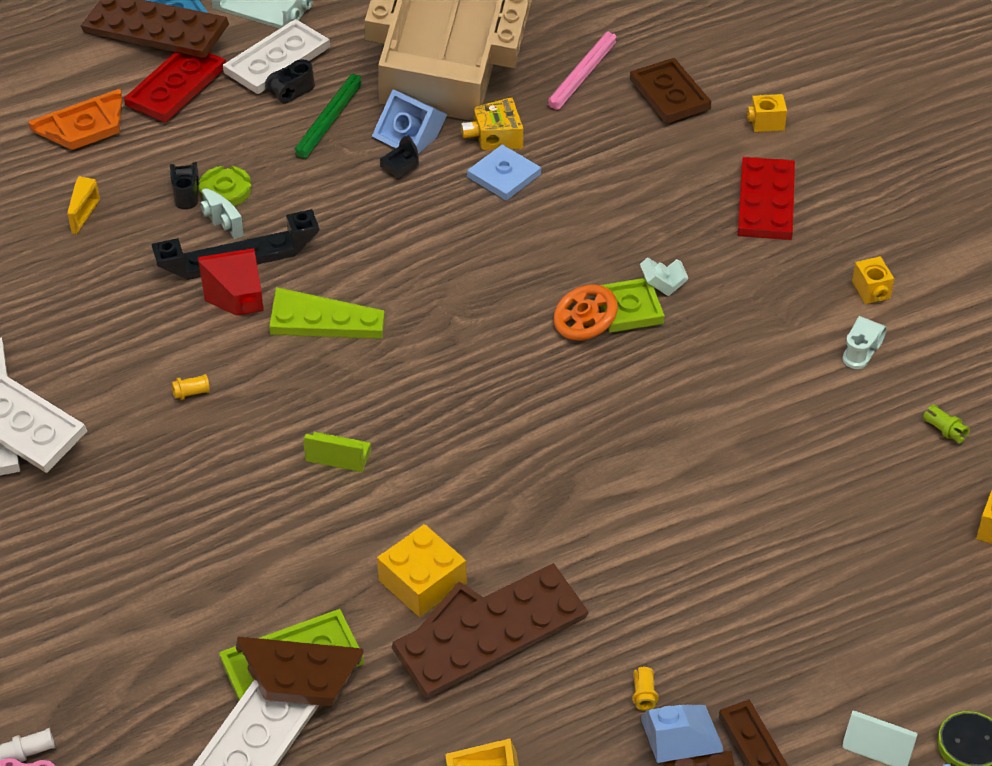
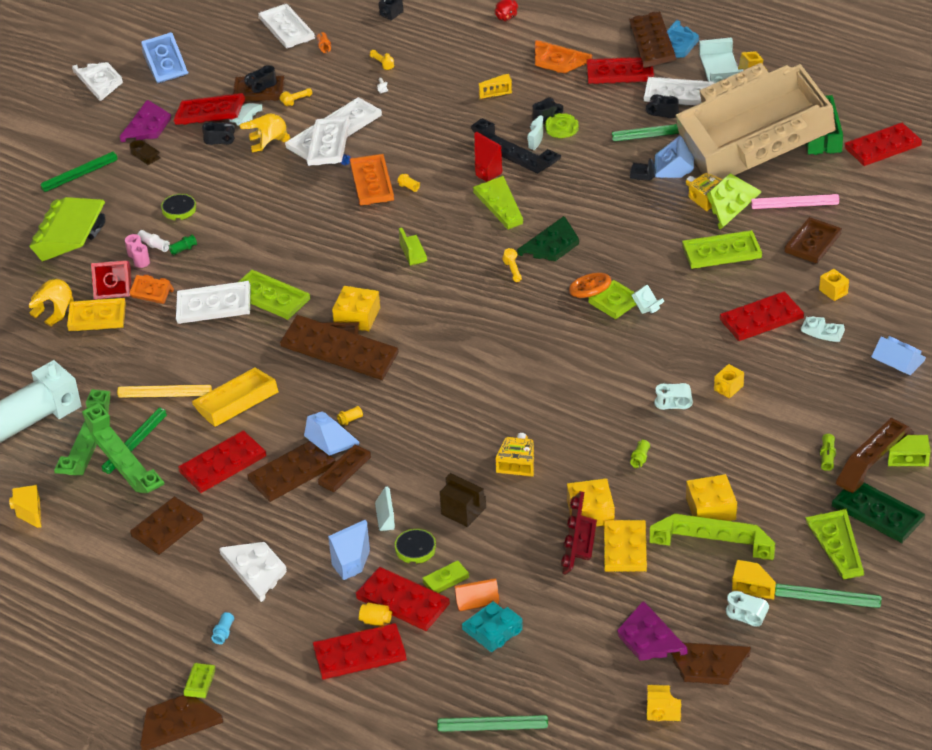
camera: 60 degrees right, 5 degrees down
(68, 710) = (185, 243): none -> green pin
(143, 421) = (371, 179): none -> orange plate
(299, 670) = (254, 293): reddish brown wing -> none
(455, 307) = (551, 242): none -> dark green wing
(460, 359) = (509, 259): none -> yellow piece
(504, 172) = (675, 212): light blue plate -> none
(537, 114) = (730, 198): none -> lime wing
(617, 169) = (721, 249): none -> lime plate
(835, 162) = (818, 328): none -> light aqua slope
(869, 543) = (516, 456): none -> yellow torso
(931, 642) = (461, 500): none -> dark brown plate
(937, 125) = (898, 355): none -> light blue slope

